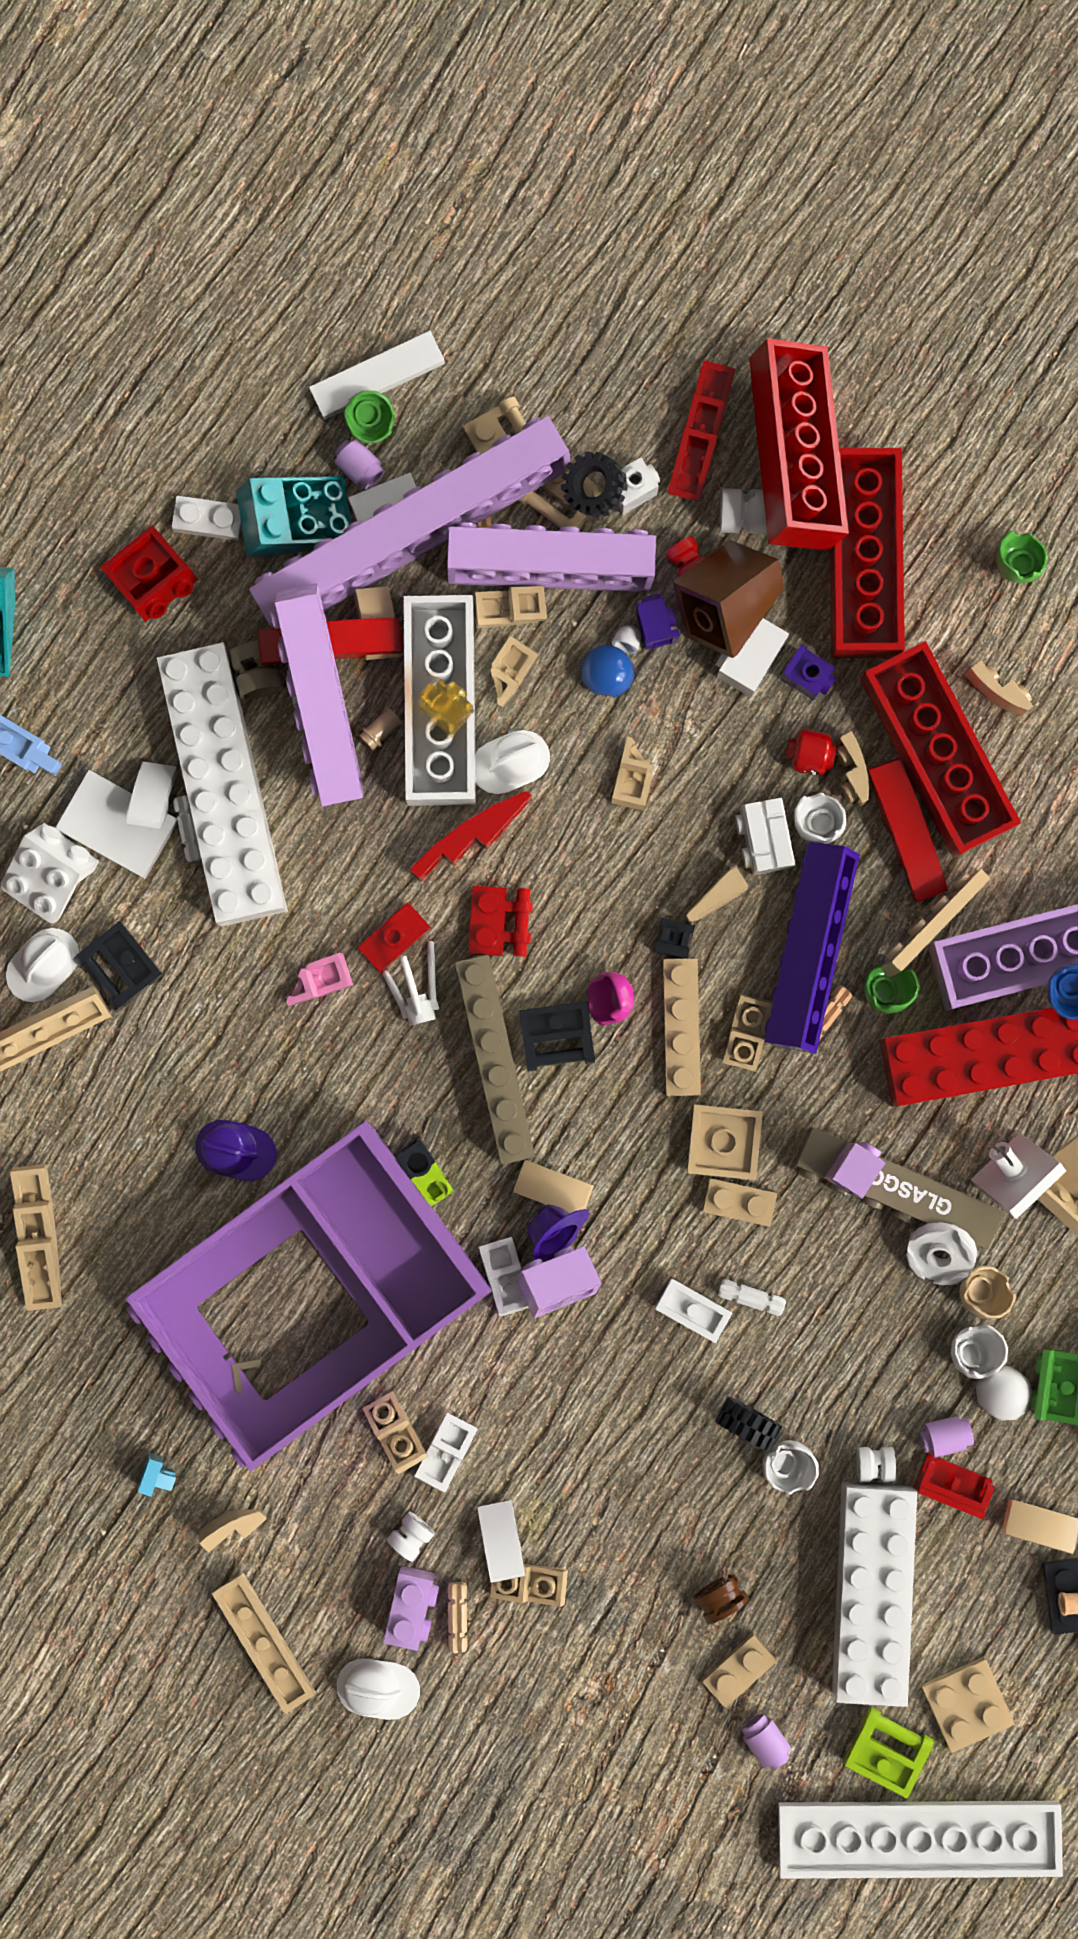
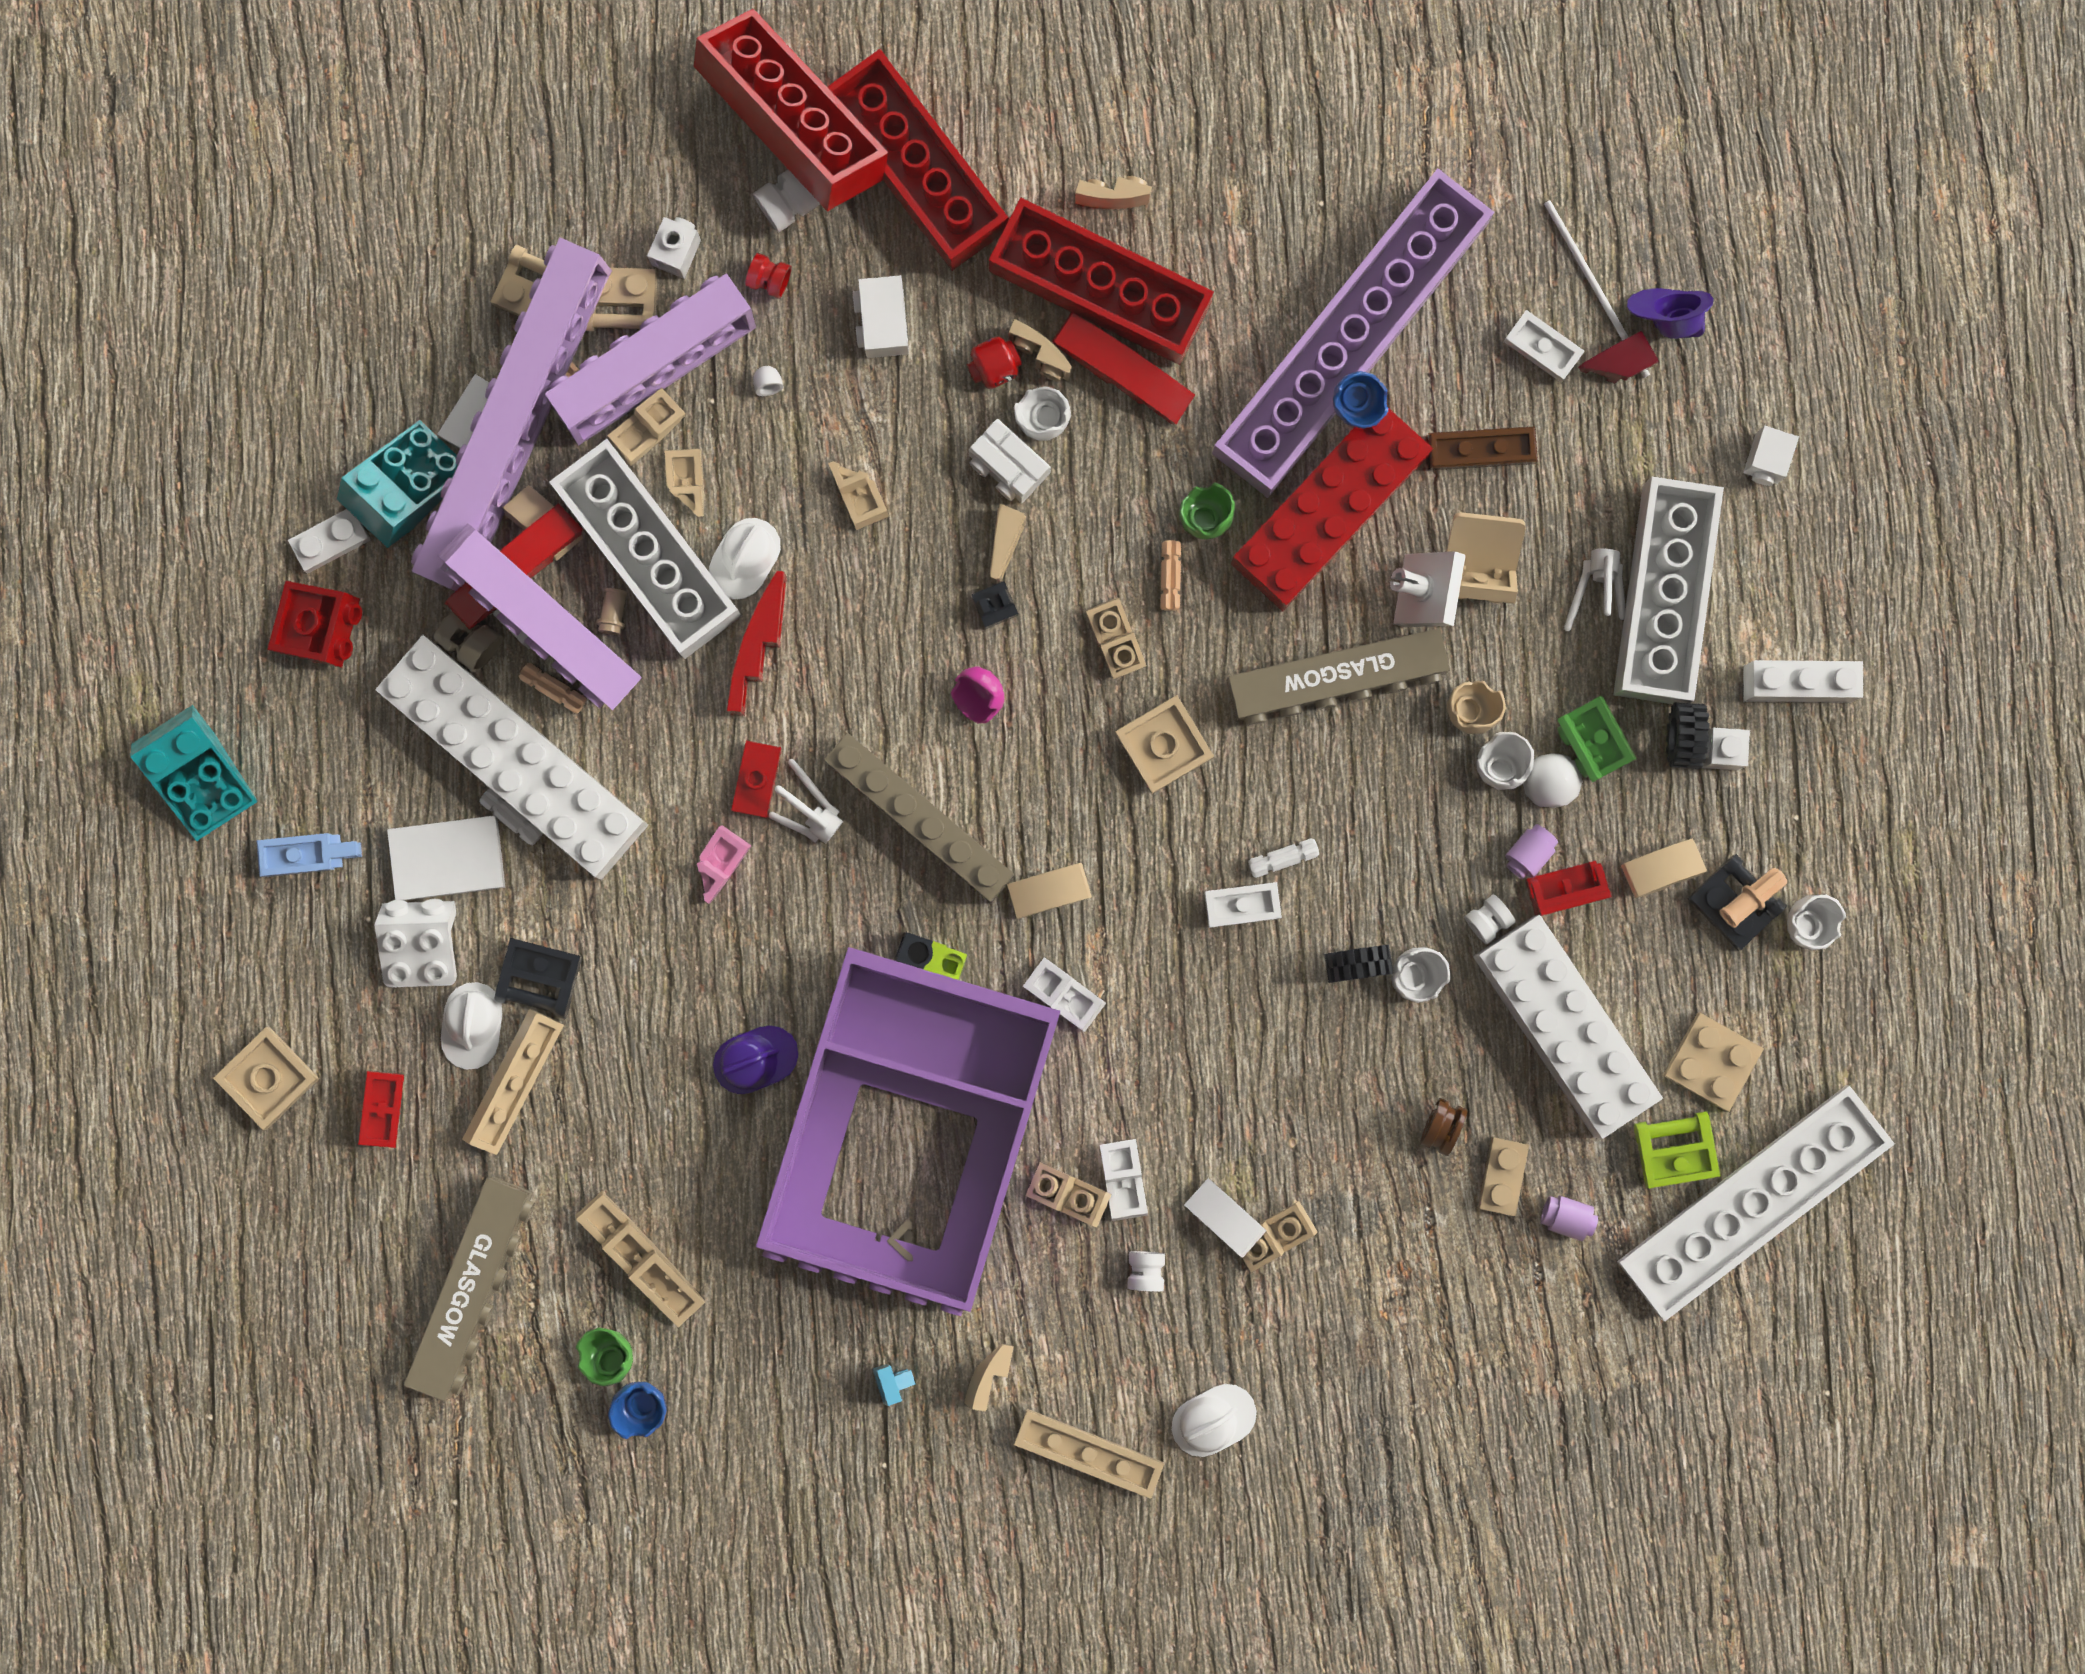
camera: 40 degrees left, 0 degrees up
(151, 795) = (457, 810): white slope -> none
(291, 753) = (552, 688): none -> light nougat axle
(359, 464) = (425, 398): lavender brick -> none
(369, 416) = (404, 351): bright green hair -> none
(378, 373) = (384, 312): white tile -> none
(409, 1608) = (1189, 1330): lavender brick -> none
(446, 706) = (655, 548): clear yellow brick -> none
(457, 1617) = (1235, 1309): tan axle -> none
(488, 921) = (825, 704): red plate -> none
(554, 1230) = (1077, 924): dark purple piece -> none
(555, 1024) = (948, 750): black plate -> none
(558, 1281) = (1111, 963): lavender brick -> none
(575, 479) = (661, 263): black tyre -> none
(607, 671) = (770, 420): blue hair -> none
(656, 622) = (781, 348): dark purple brick -> none
(681, 1027) = (1056, 675): tan plate -> none
(701, 431) = (698, 157): red slope -> none
(728, 596) = (825, 281): reddish brown slope -> none
(739, 1202) = (1214, 786): tan plate -> none
(796, 675) = (935, 308): dark purple brick -> none
(811, 947) = (1116, 526): dark purple brick -> none
(856, 1168) = (1289, 682): lavender brick -> none
(925, 930) = (1200, 442): tan plate -> none
(946, 1238) = (1404, 687): white tile -> none
(1021, 557) = (1049, 69): bright green hair -> none

